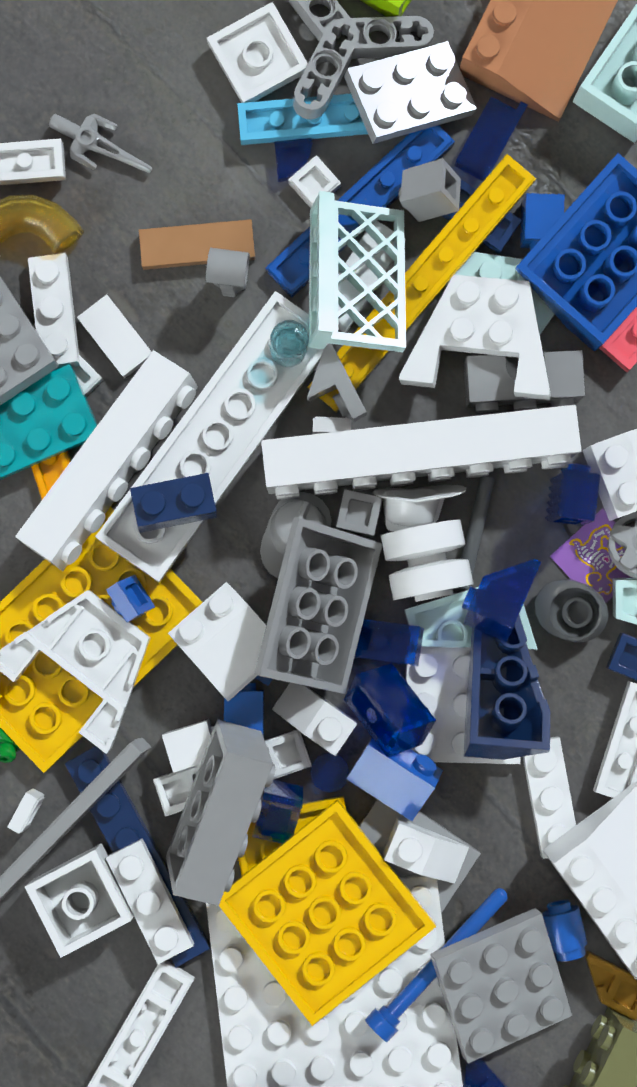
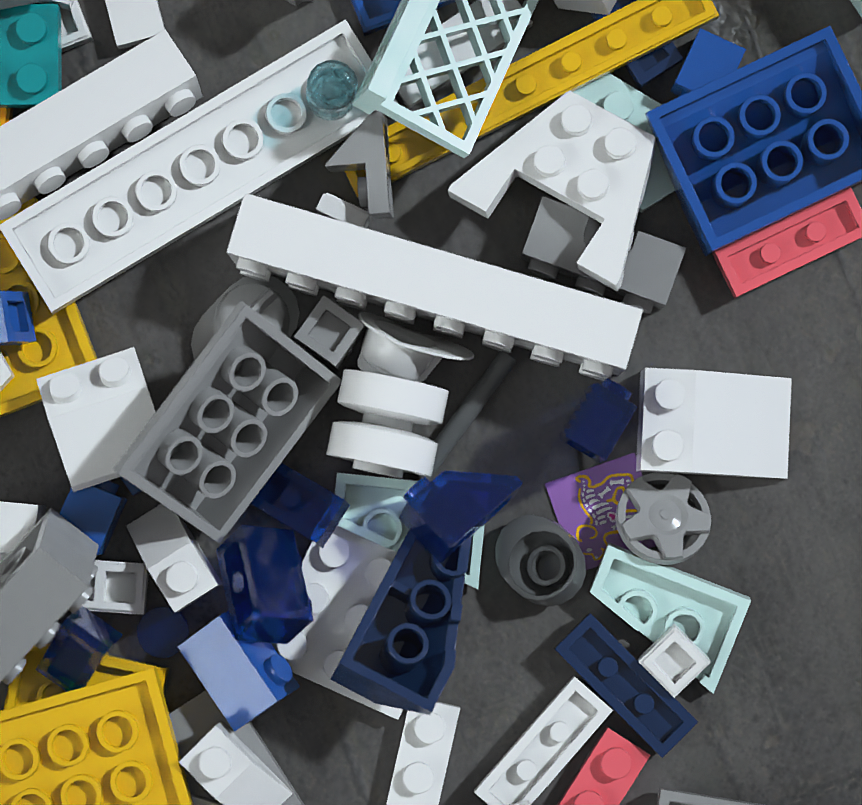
camera: 25 degrees right, 0 degrees up
(173, 502) = (107, 224): dark blue brick -> none

